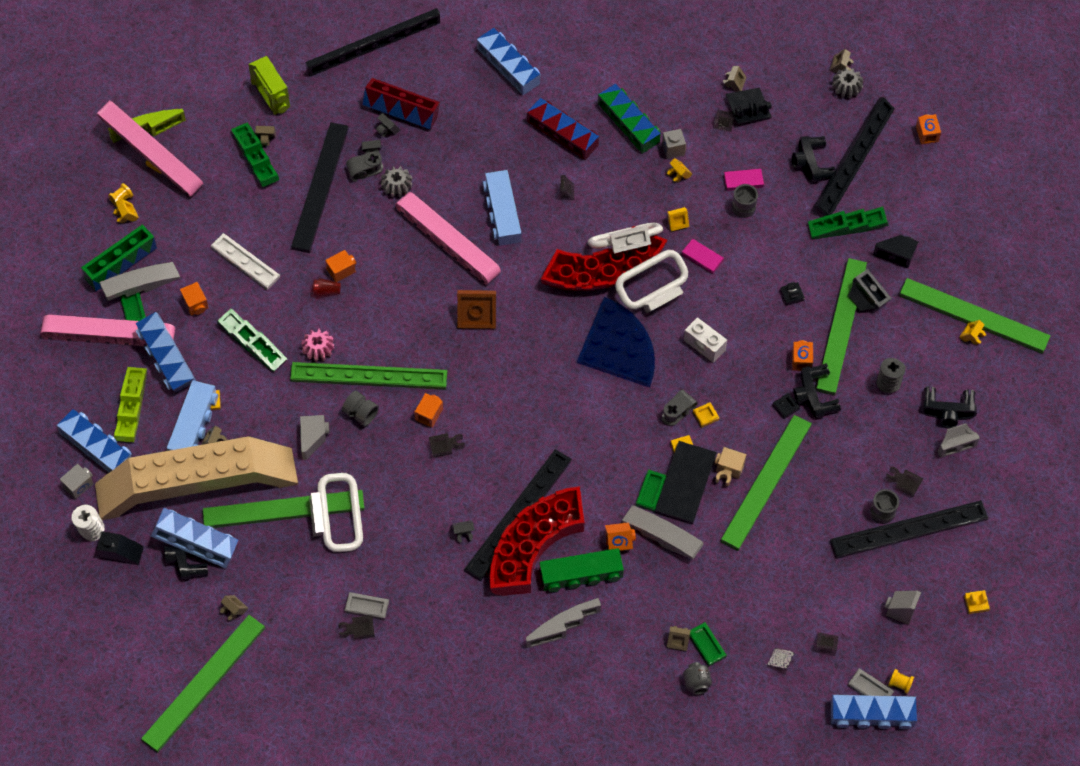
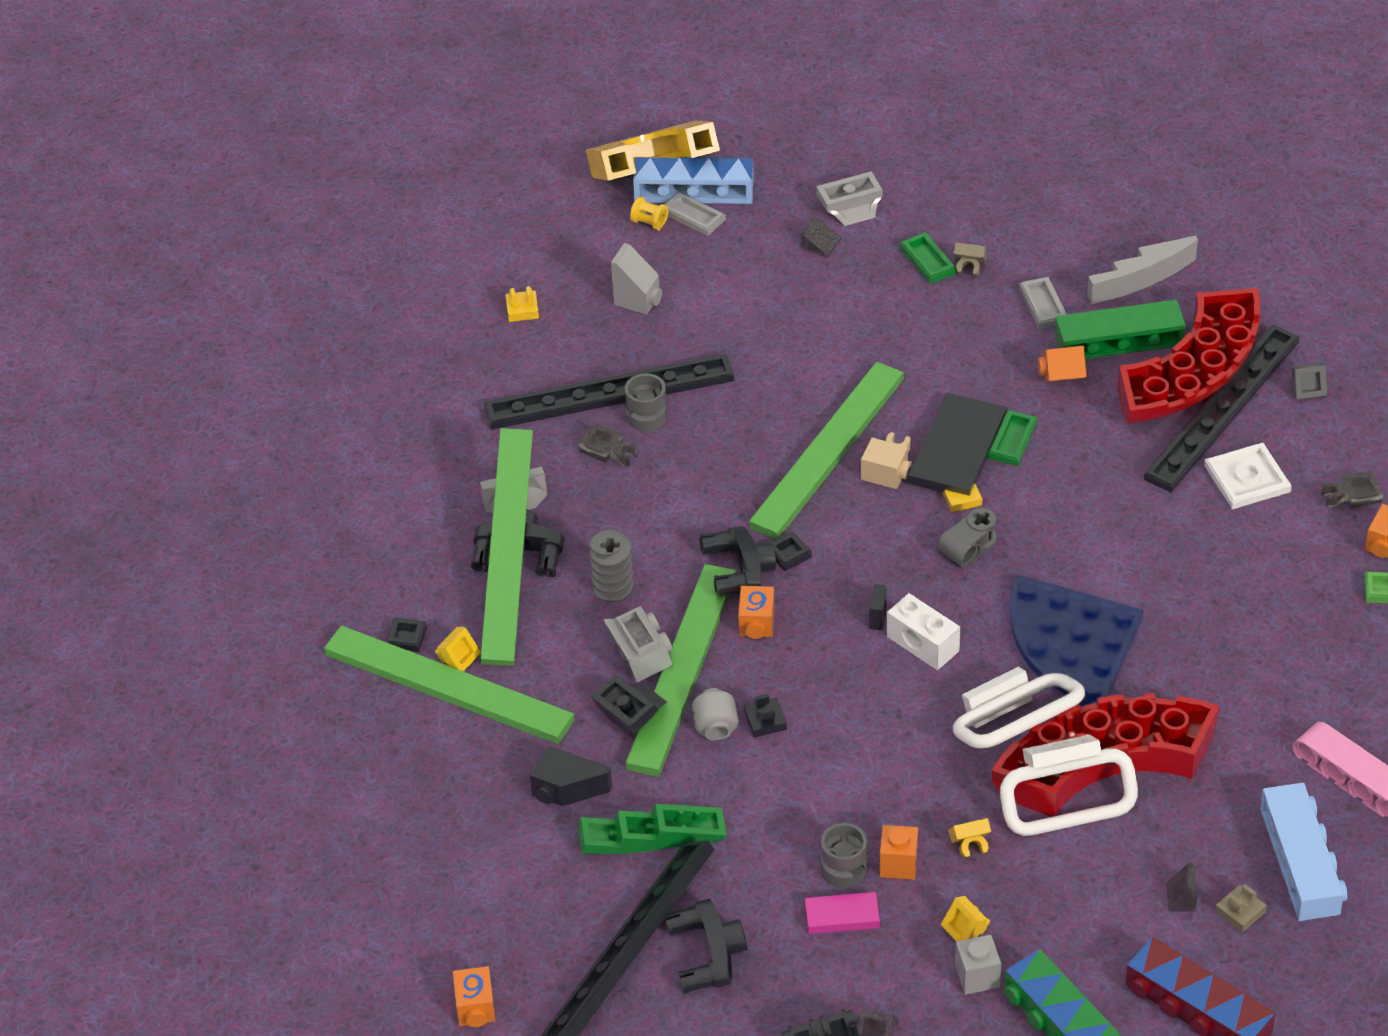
camera: 175 degrees left, 15 degrees down
(476, 309) = (1329, 671): dark orange tile -> none
(507, 460) = (1247, 475): none -> white tile
(537, 182) = (1241, 907): none -> dark tan tile
(629, 602) = (1042, 301): none -> light grey tile
(664, 532) = (989, 371): light grey slope -> none
(697, 678) = (943, 208): dark grey head -> none
(702, 256) = (924, 778): dark pink tile -> none
(706, 414) = (921, 538): yellow tile -> none
(715, 204) = (898, 852): none -> orange brick
(731, 358) = (878, 607): none -> black tile
(762, 695) = (851, 198): none -> light grey slope
(820, 290) = (715, 714): none -> light grey head
(826, 644) = (751, 255): clear smoke slope -> none
(869, 331) = (640, 642): none -> light grey window
(933, 728) = (682, 140): none -> yellow arch
(955, 388) = (506, 547): none -> bright green tile
(1004, 348) = (407, 634): none -> black tile

